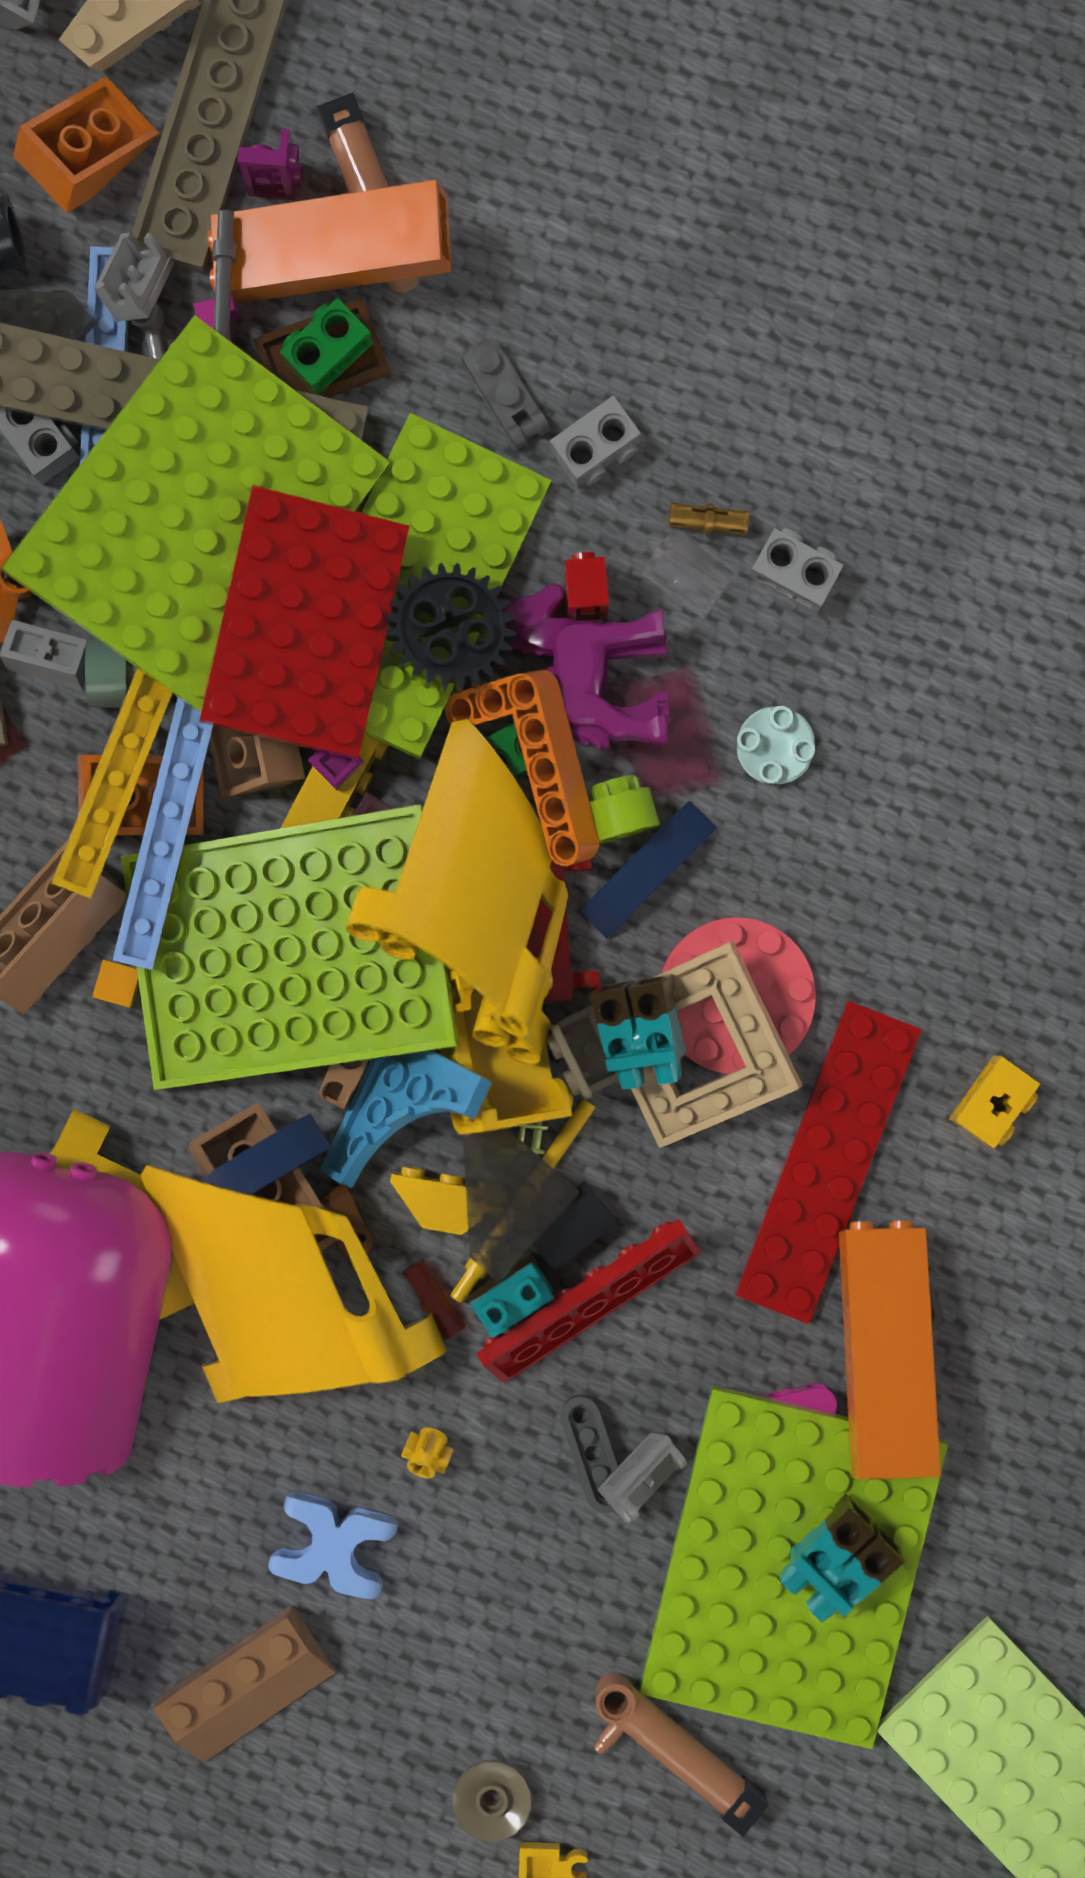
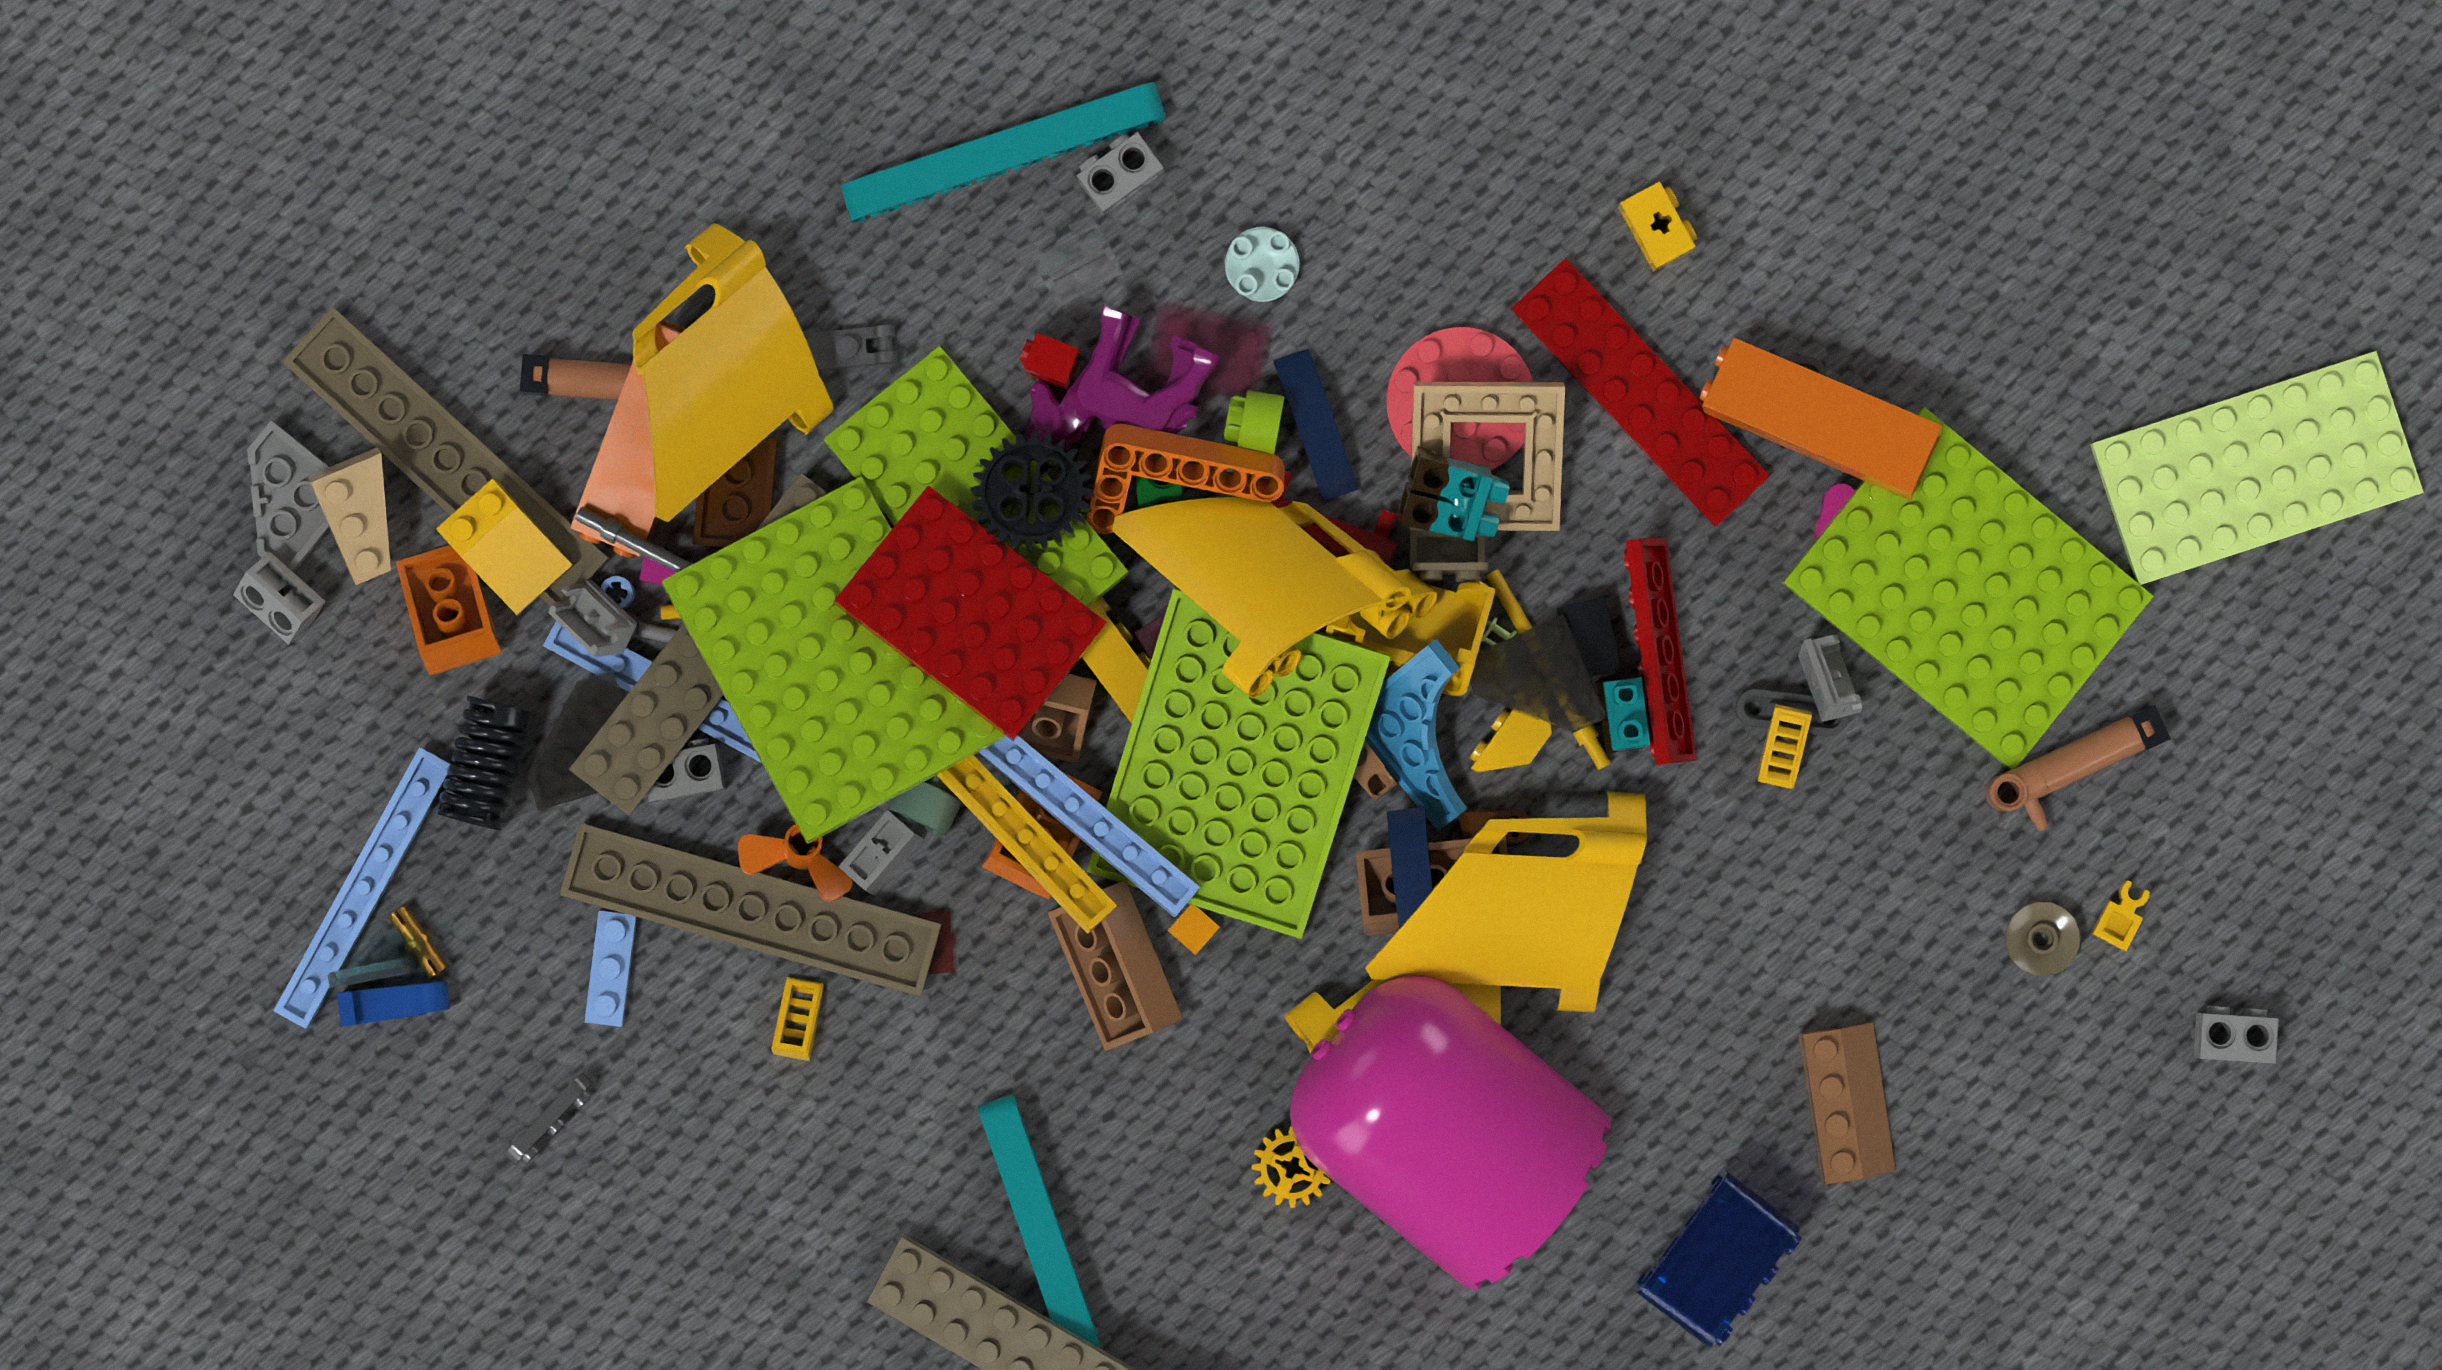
camera: 65 degrees left, 0 degrees up
(164, 160) = (504, 546): none -> yellow slope
(186, 297) = (625, 584): none -> light blue bush
(272, 171) = (557, 460): magenta bracket -> none
(333, 1545) = (1763, 970): light blue piece -> none
(335, 353) = (743, 480): green brick -> none
(335, 768) = (1102, 649): magenta tile -> none
(415, 276) = (726, 374): none -> yellow panel
(427, 1452) = (1723, 852): yellow gear -> none
(433, 1299) = (1595, 785): clear red pin -> none
(532, 1467) = (1780, 769): none -> yellow slope
(588, 435) = (917, 294): light grey brick -> none
(708, 518) = (1038, 227): pearl gold pin -> none
(764, 450) = (1003, 150): none -> teal beam
(842, 1560) = (1975, 542): hips -> none

